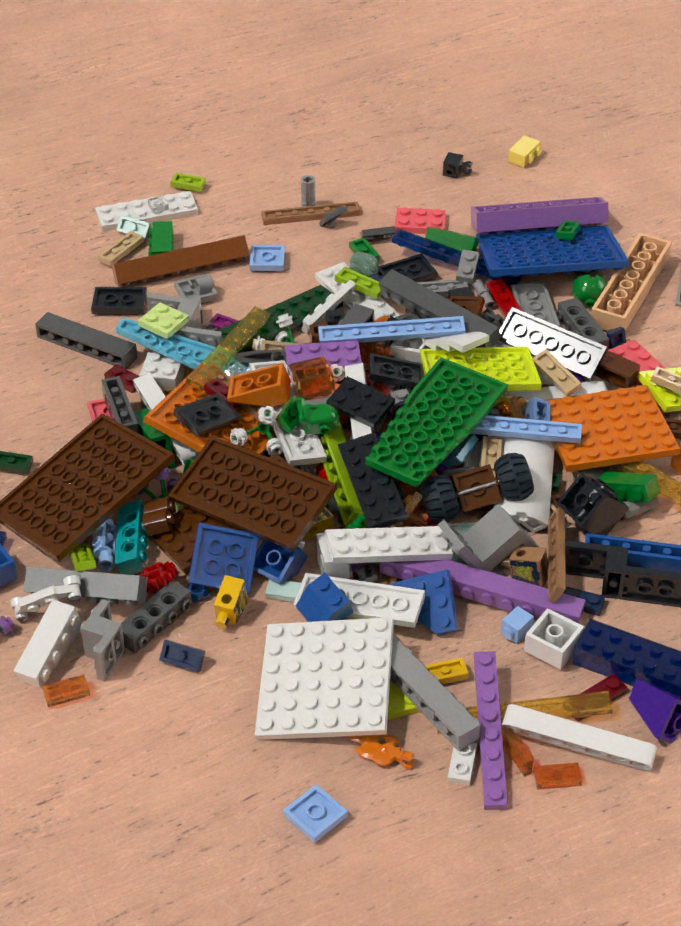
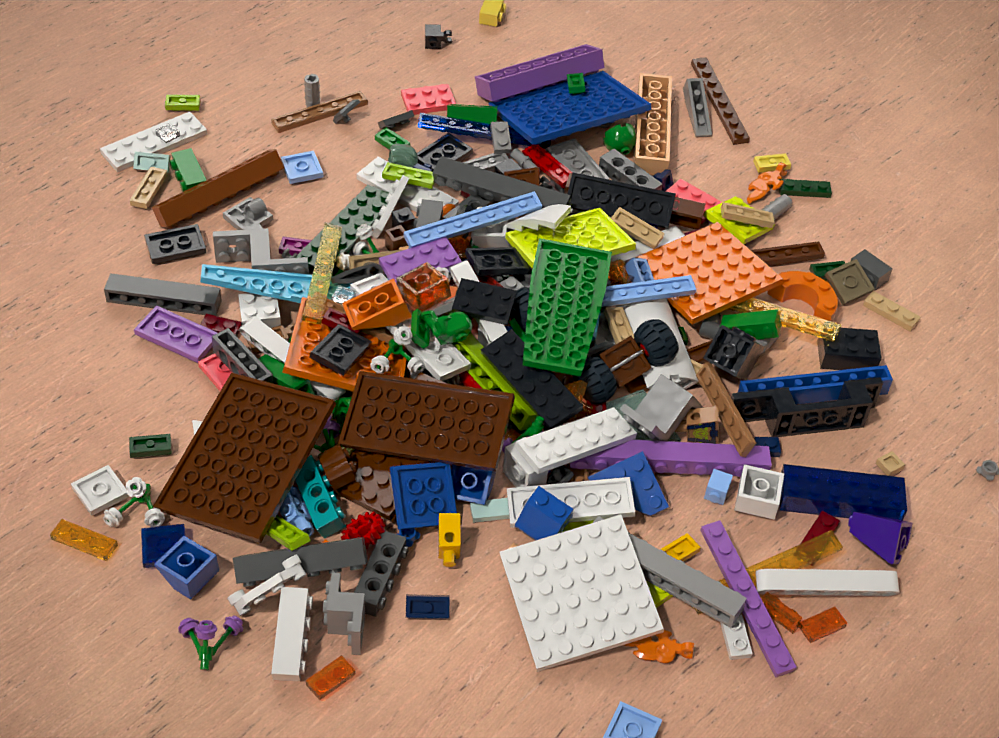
camera: 25 degrees left, 5 degrees up
(78, 374) = (176, 333): none -> medium lavender plate
(163, 320) = (245, 258): yellowish green plate -> none

